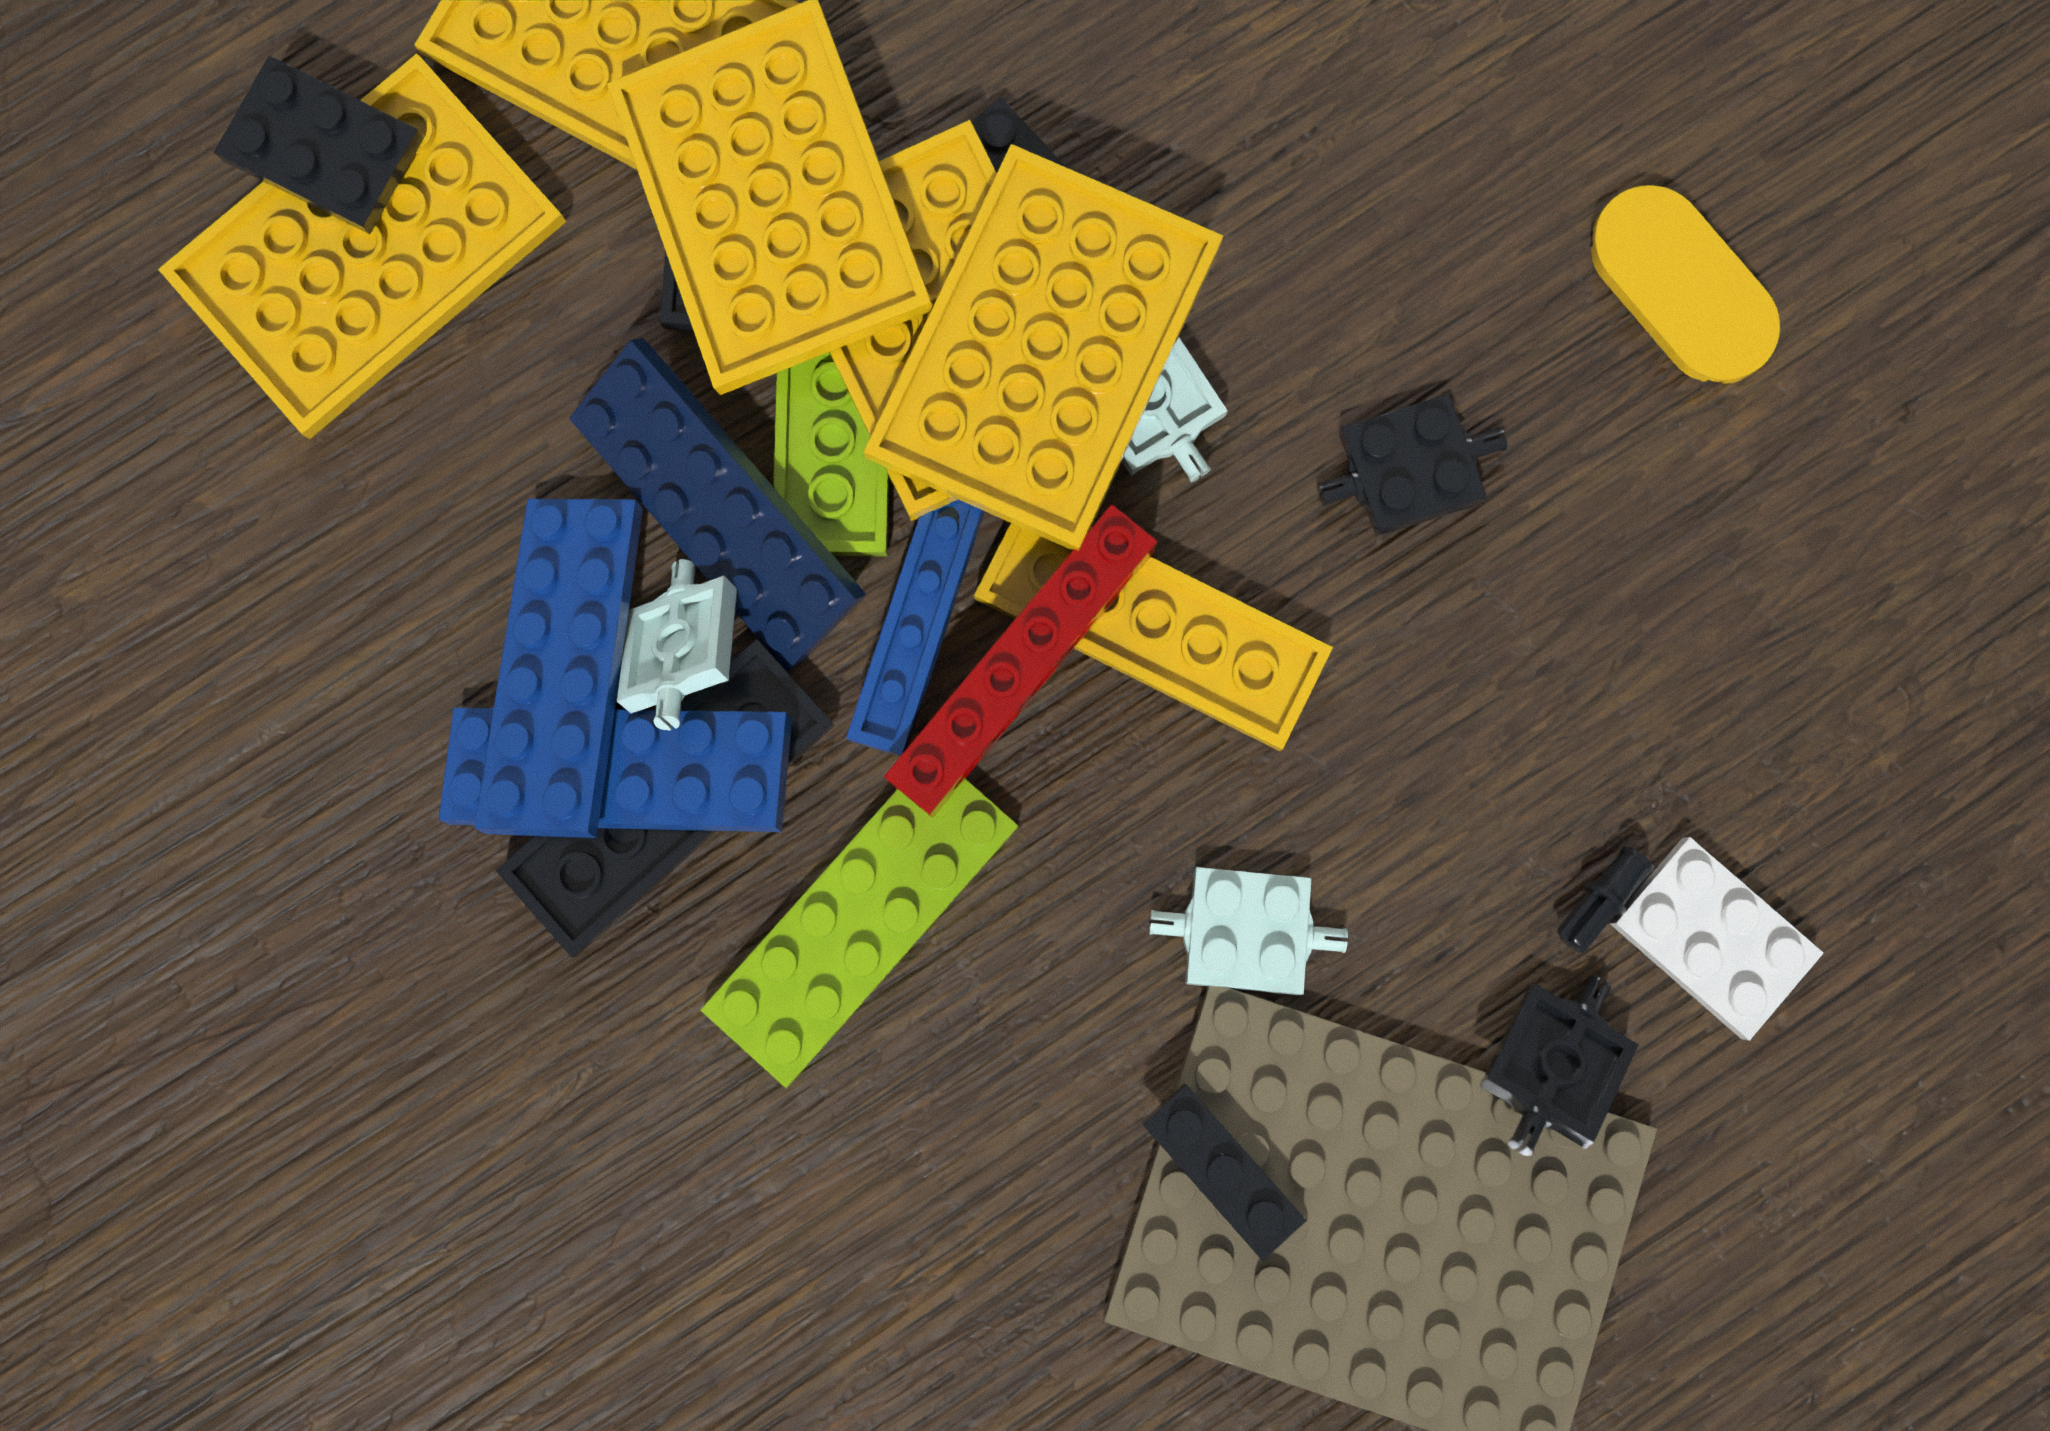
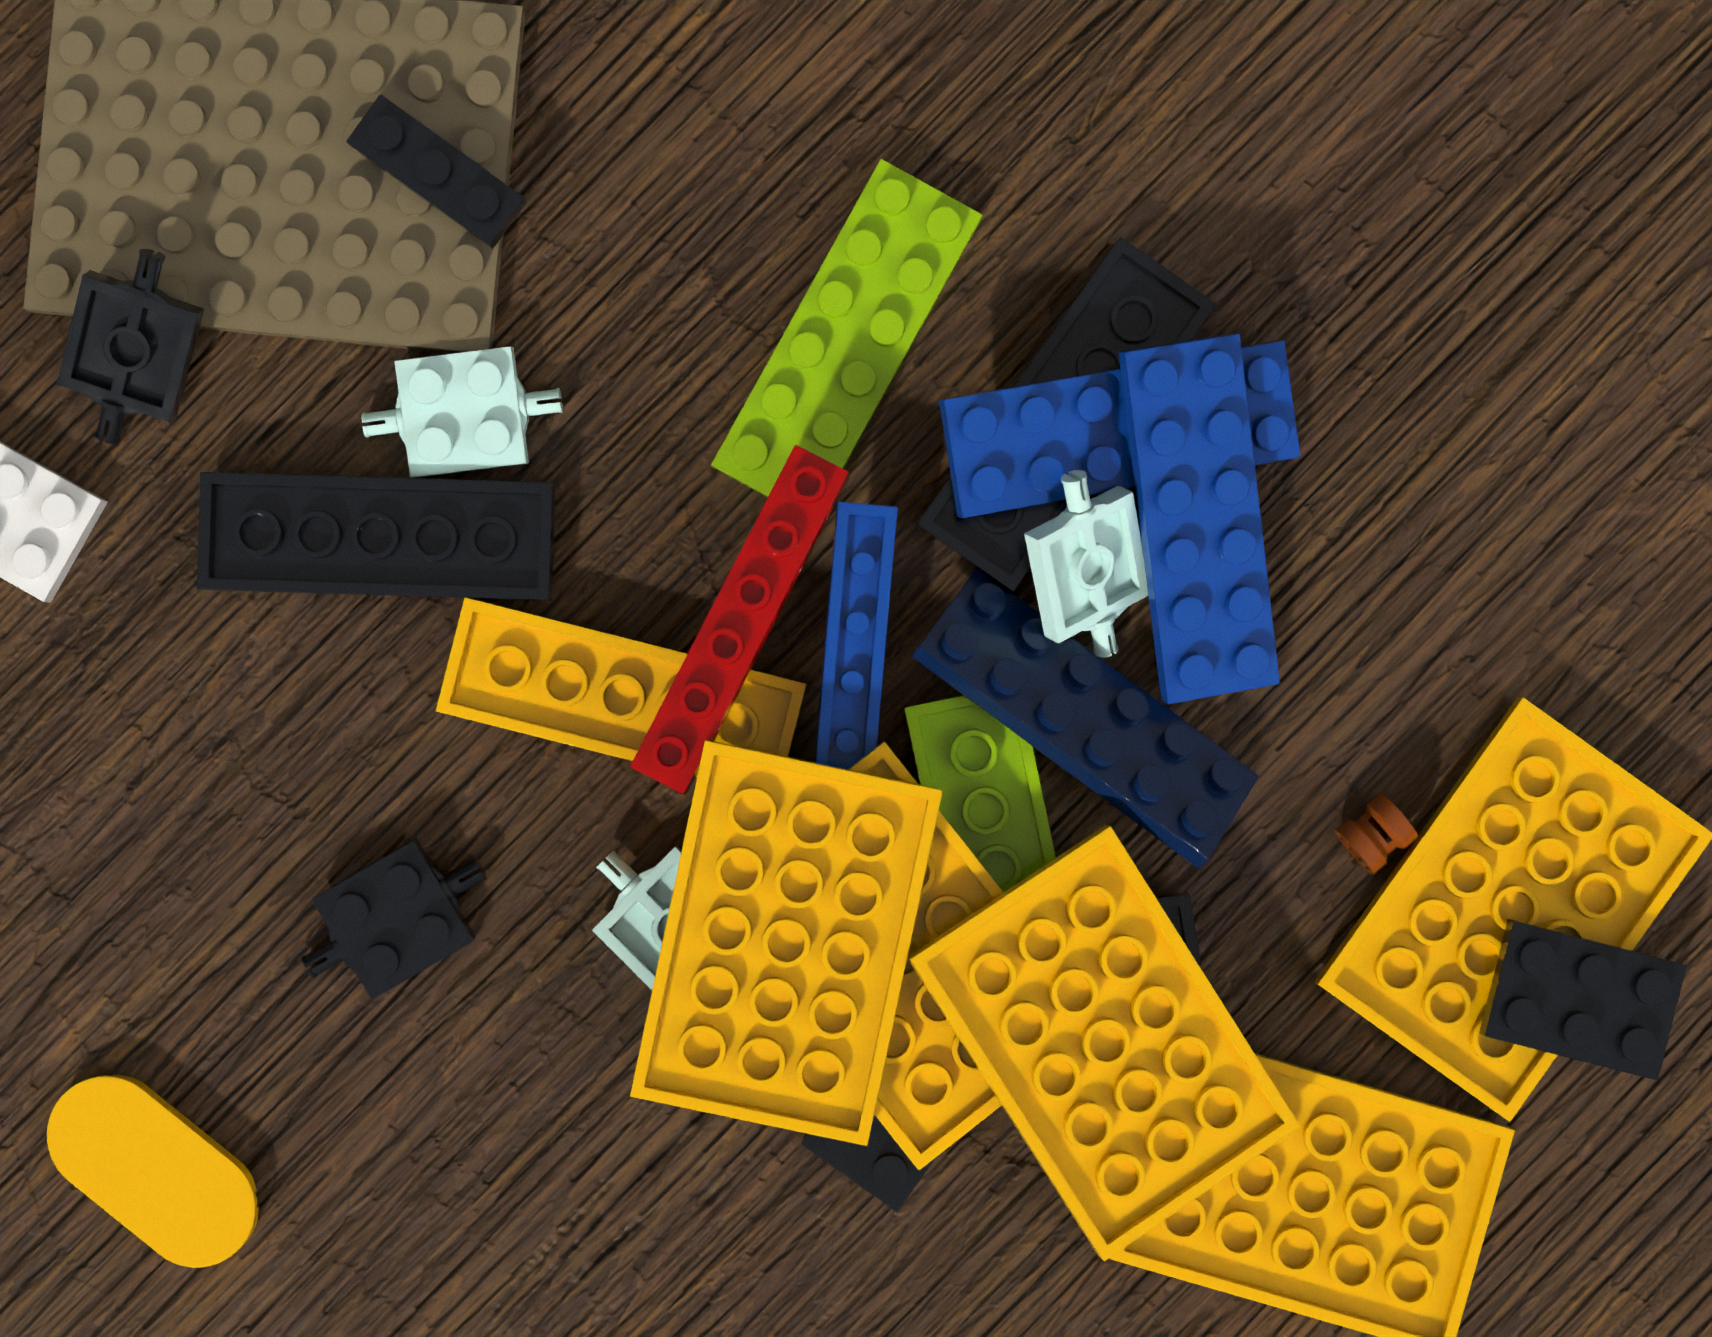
camera: 170 degrees right, 5 degrees up
(482, 332) = (1367, 843): none -> dark orange wheel
(1357, 828) = (376, 536): none -> black plate
(1604, 899) = (116, 521): black axle -> none

